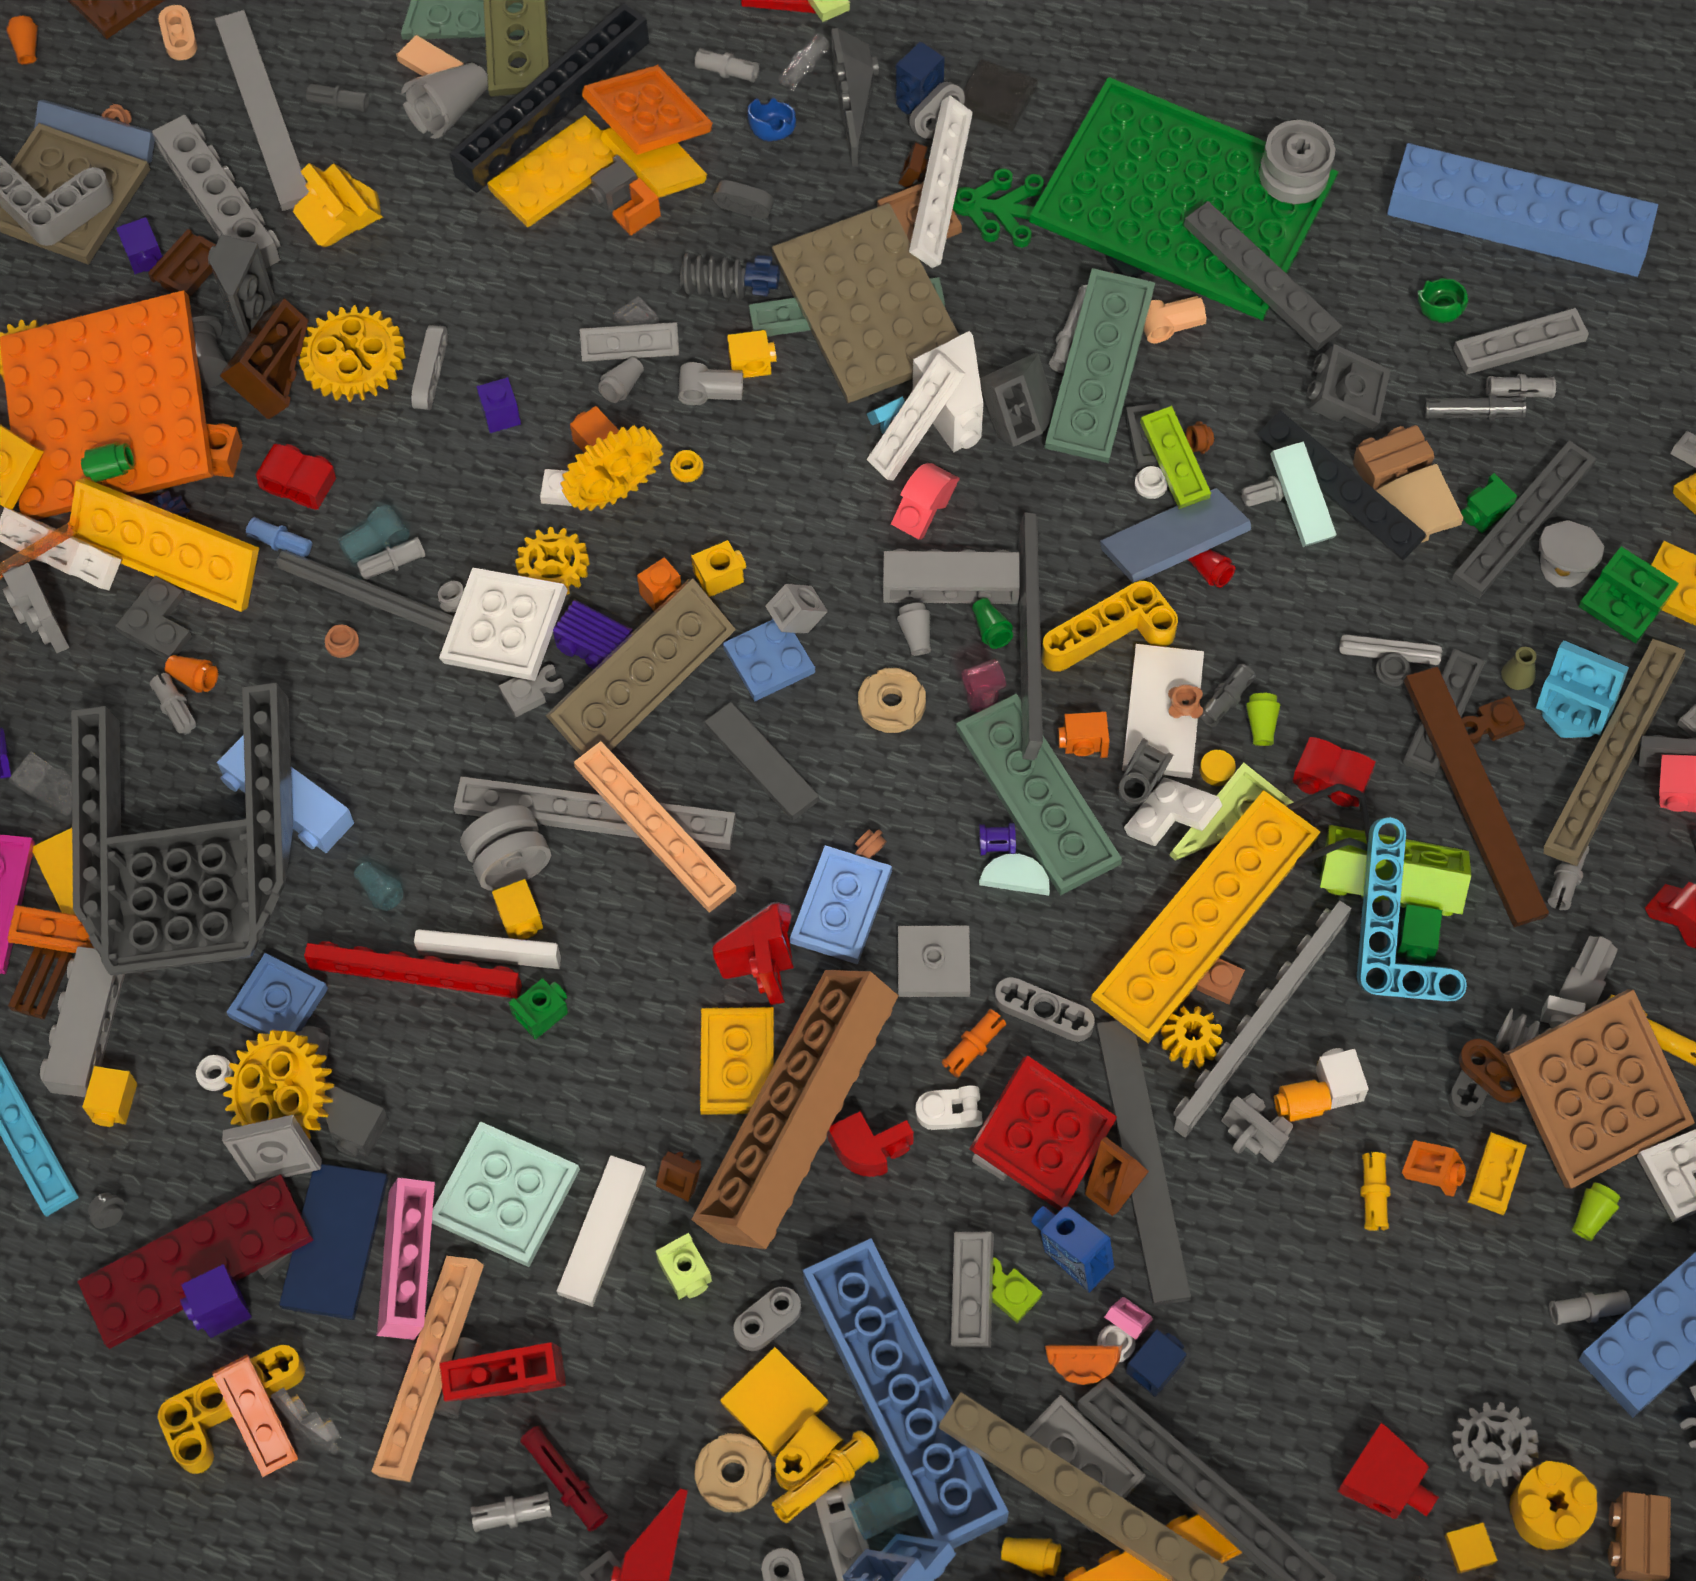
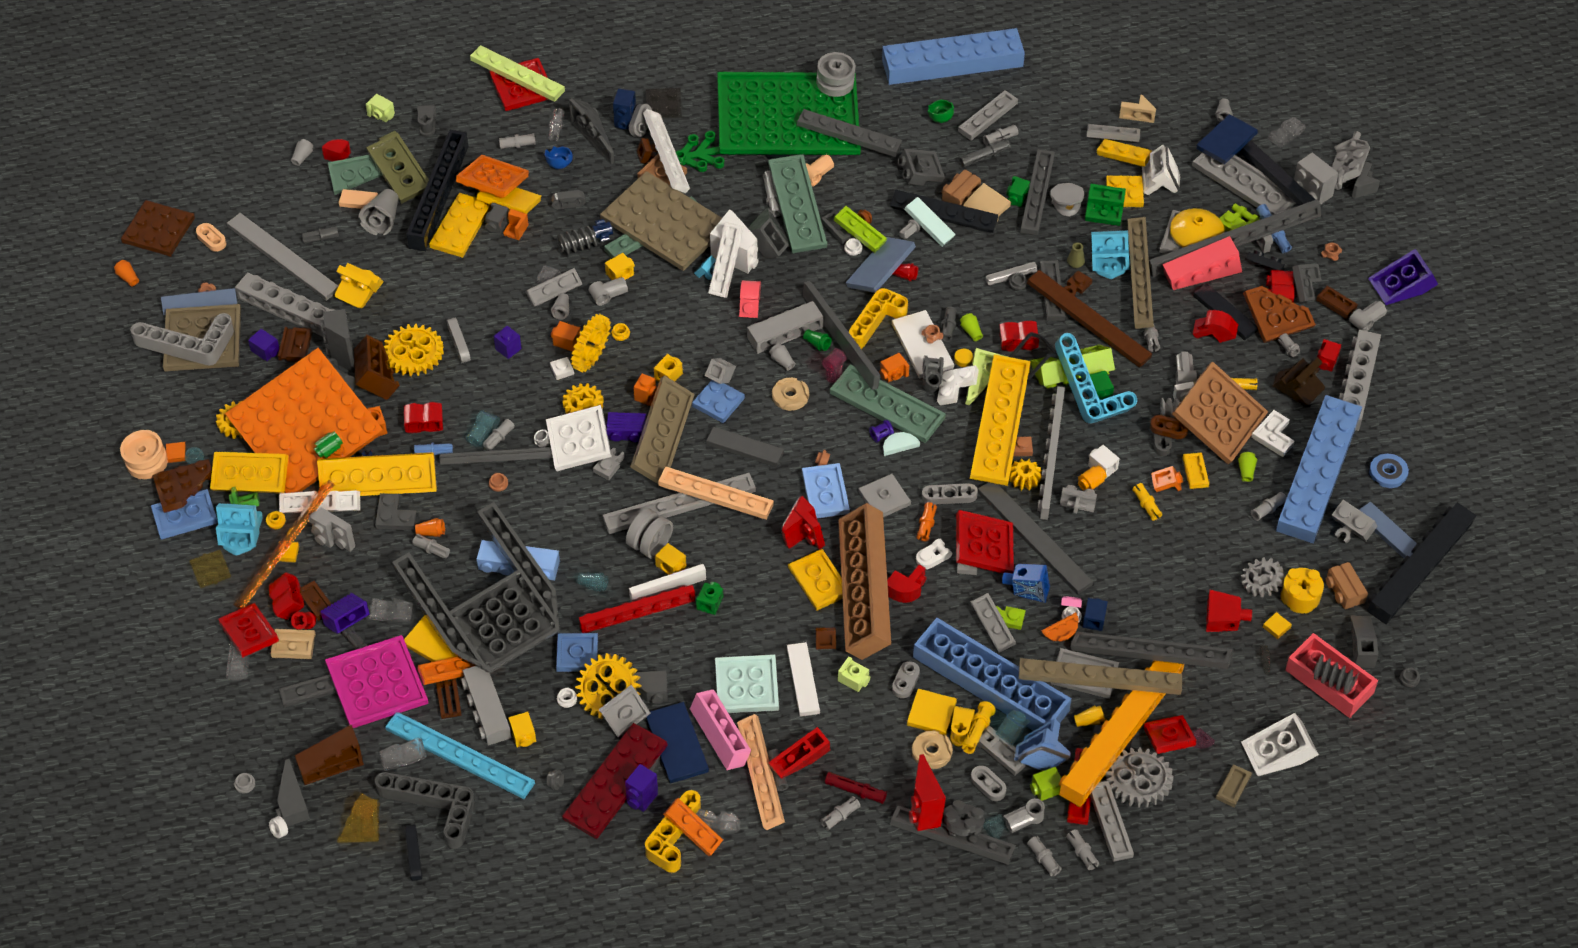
camera: 30 degrees left, 10 degrees down
(1113, 1177) = (1028, 545): dark orange slope -> none

